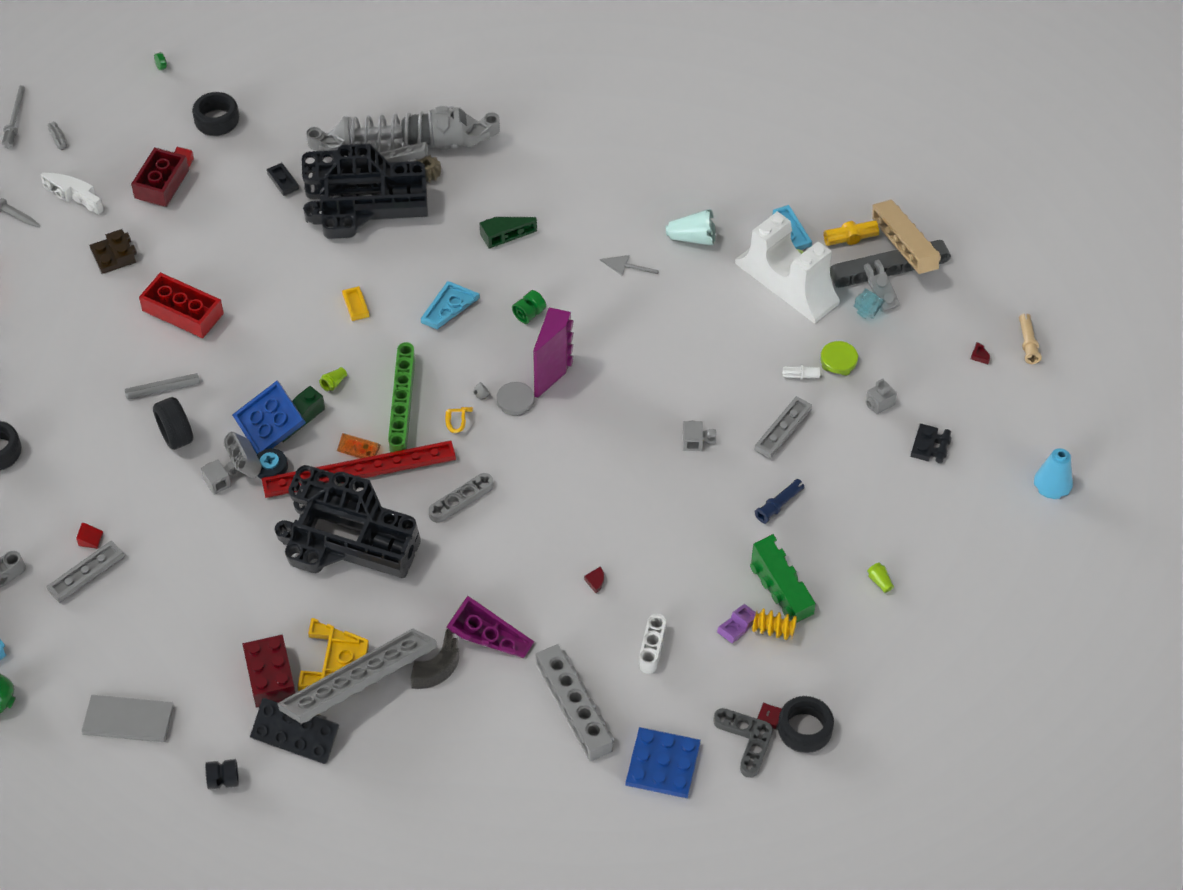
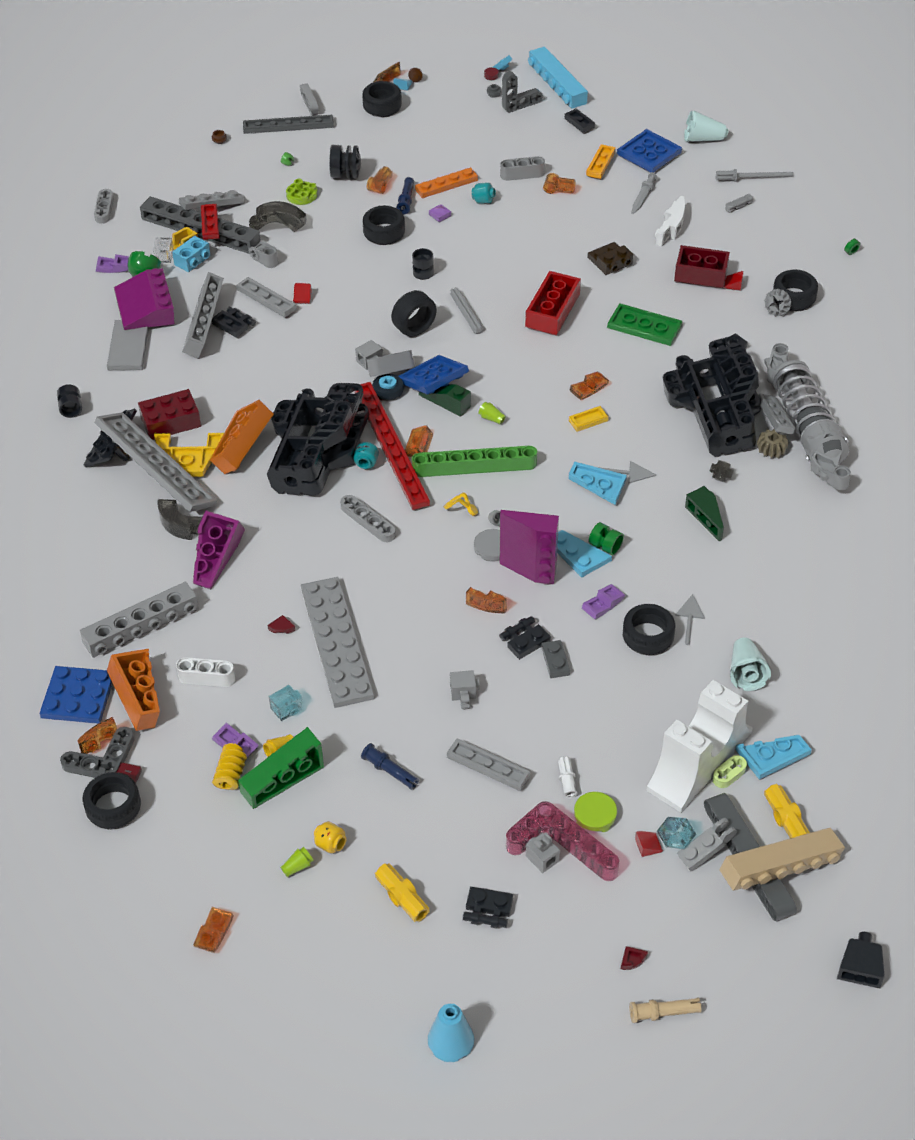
camera: 85 degrees right, 5 degrees down
(59, 694) = (145, 300): none -> magenta slope
(79, 413) = (423, 263): none -> black wheel
(108, 631) = (203, 315): none -> light grey brick
(122, 610) = (233, 322): none -> black plate
(226, 240) = (644, 324): none -> green tile
(227, 133) = (779, 295): none -> light grey gear
(308, 296) = (592, 384): none -> clear orange slope
(324, 596) = (240, 436): none -> orange wedge
(380, 487) = (366, 455): none -> teal head
(438, 276) = (635, 472): none -> light grey piece
(456, 210) = (721, 471): none -> clear smoke gear
(526, 338) = (580, 555): none -> medium azure wing
(589, 413) = (490, 603): none -> clear orange slope
(600, 322) = (604, 601): none -> medium lavender slope
(620, 535) = (337, 642): none -> light grey plate
(641, 383) = (526, 642): none -> black plate
(645, 277) = (650, 614): none -> black tyre
(665, 366) = (555, 659): none -> dark grey plate
(671, 700) = (135, 686): none -> orange wedge
(698, 577) = (285, 702): none -> clear light blue brick
(725, 742) = (91, 739): none -> clear orange slope
(748, 586) = (274, 744): none -> yellow cone
(850, 387) = (565, 837): none -> clear pink beam
(858, 548) = (329, 837): none -> yellow head
(872, 328) = (647, 843): none -> red slope
(916, 500) = (402, 892): none -> yellow piece
(942, 645) = (214, 930): none -> clear orange slope
(989, 212) = (862, 962): none -> black torso

